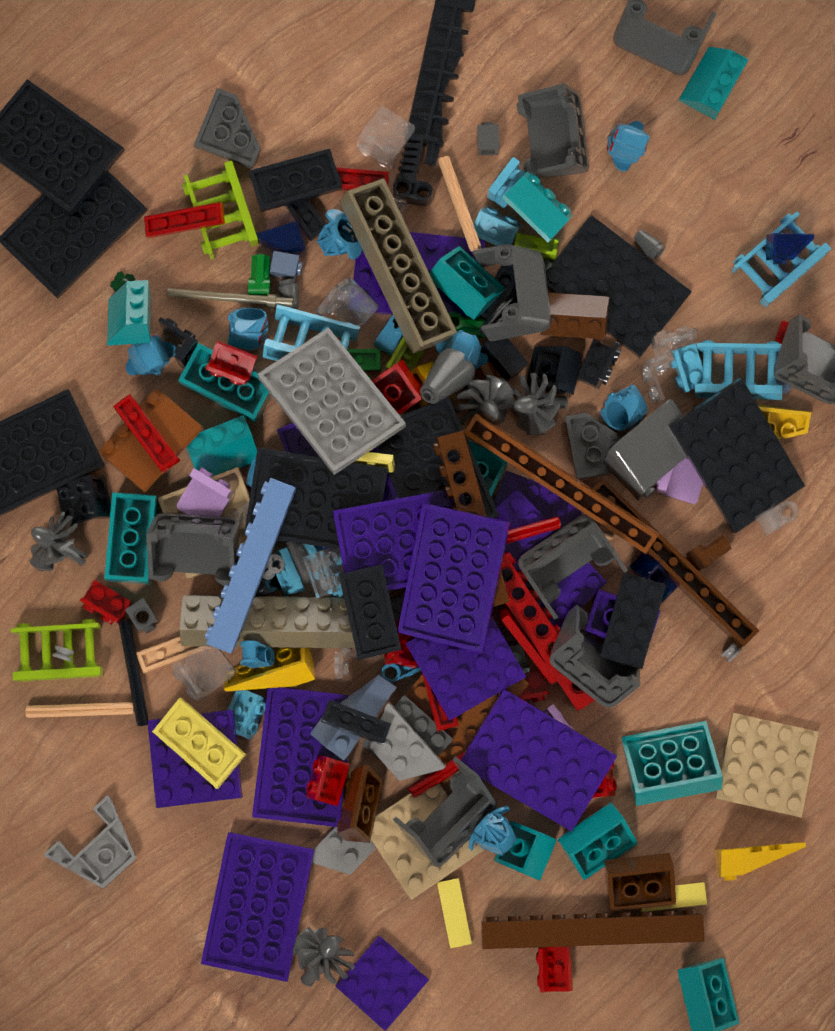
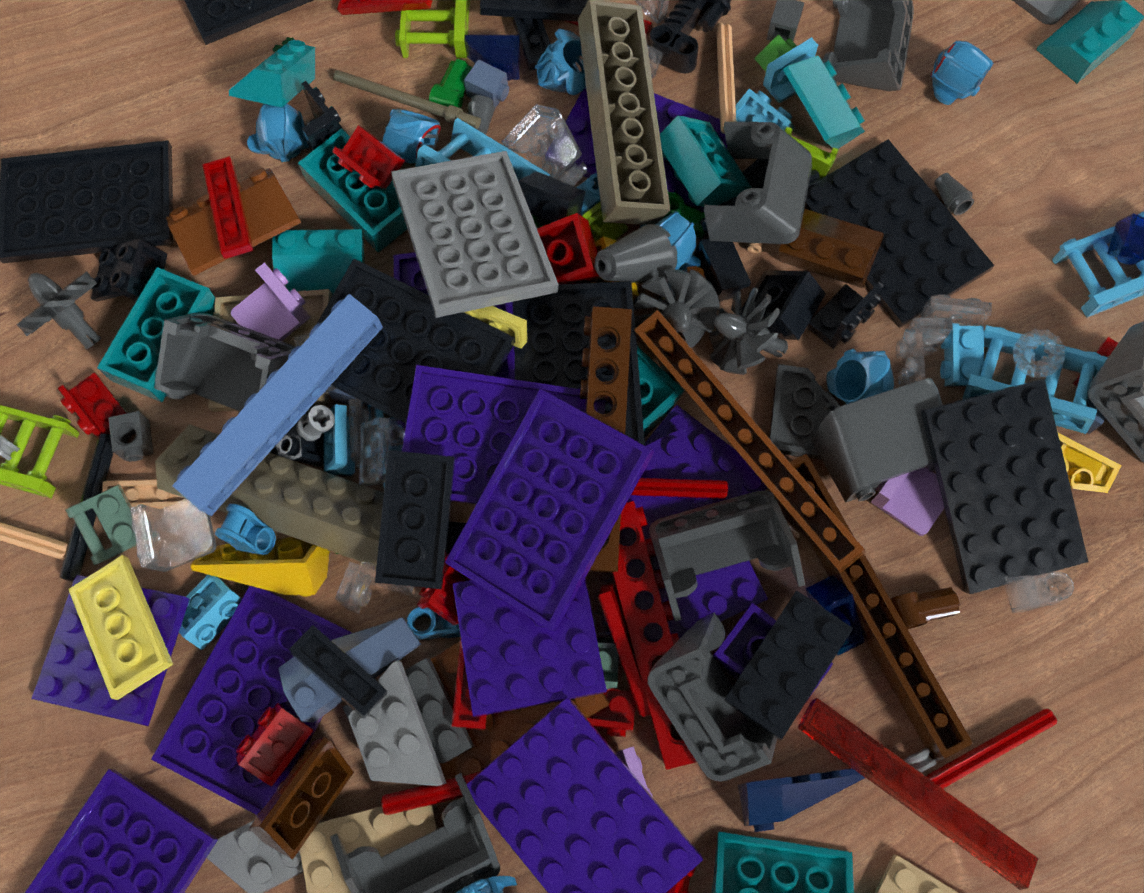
camera: 25 degrees right, 10 degrees down
(159, 675) = (115, 517): none -> sand green plate
(370, 348) = (550, 197): none -> black brick
(373, 326) = (573, 173): none -> clear gear
(491, 170) = (774, 50): none -> bright green bracket
(654, 703) = (784, 797): none -> dark blue wedge
(734, 671) = (918, 794): none -> clear red plate
(742, 363) = (1046, 365): none -> clear gear
(770, 632) = (993, 748): none -> red axle

